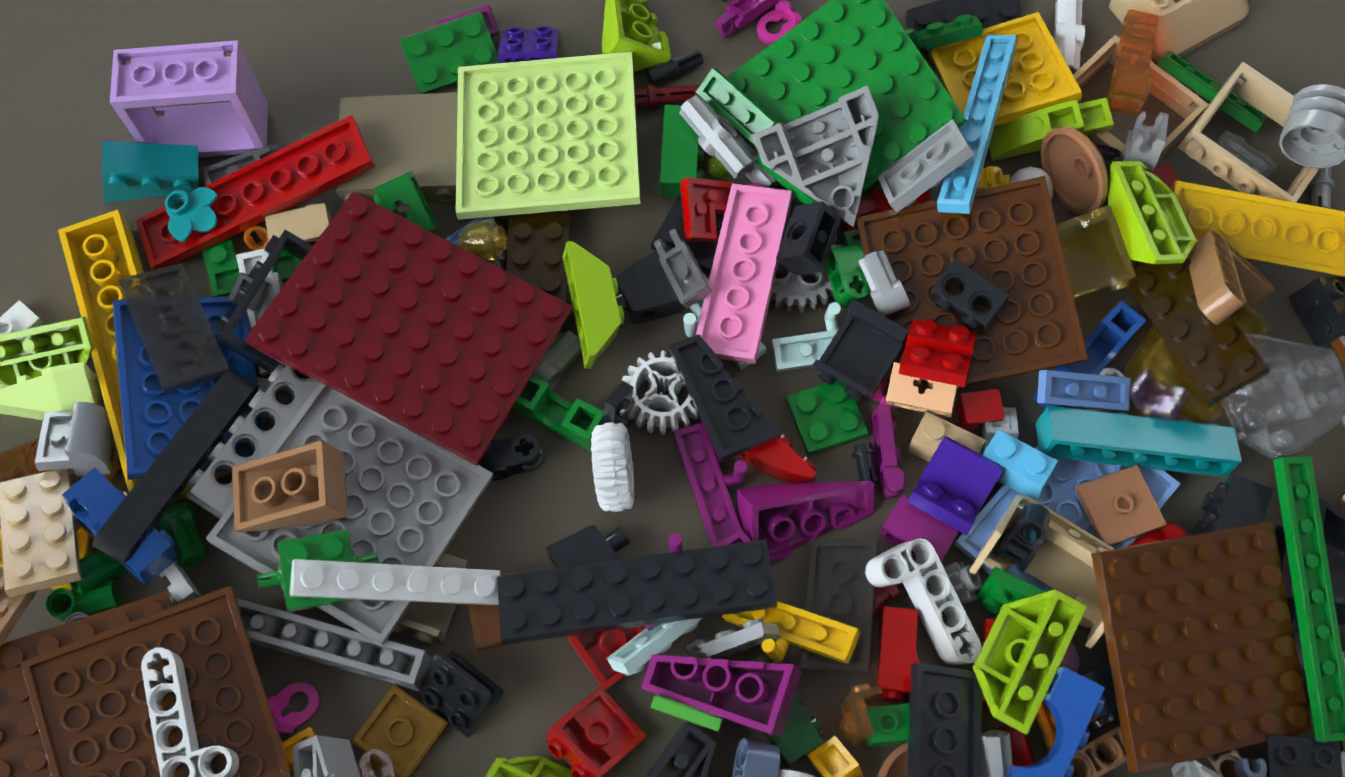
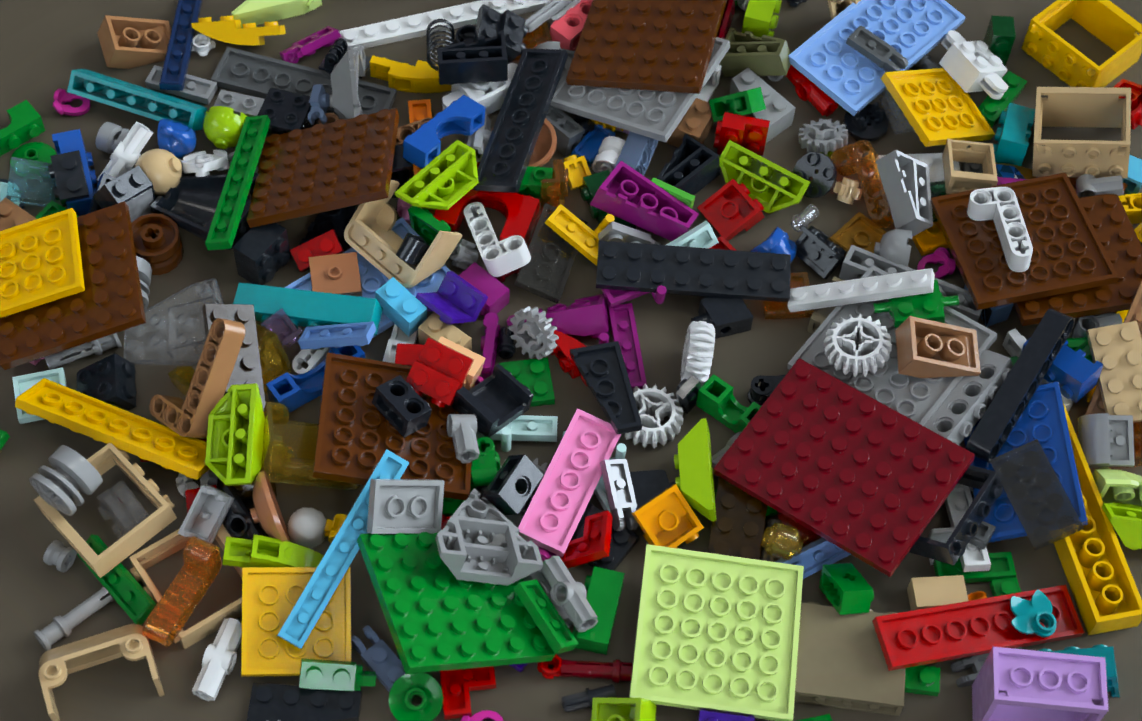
camera: 175 degrees left, 10 degrees down
(350, 697) = (895, 246): none -> light grey cylinder
(412, 491) = (872, 350): none -> white gear
(486, 751) = (804, 217): none -> clear pin
(526, 676) = (777, 243): none -> blue piece
(623, 245) = (668, 519): none -> light orange plate
(833, 460) = (533, 332): none -> light grey gear
(1241, 42) = (62, 625): none -> light grey pin

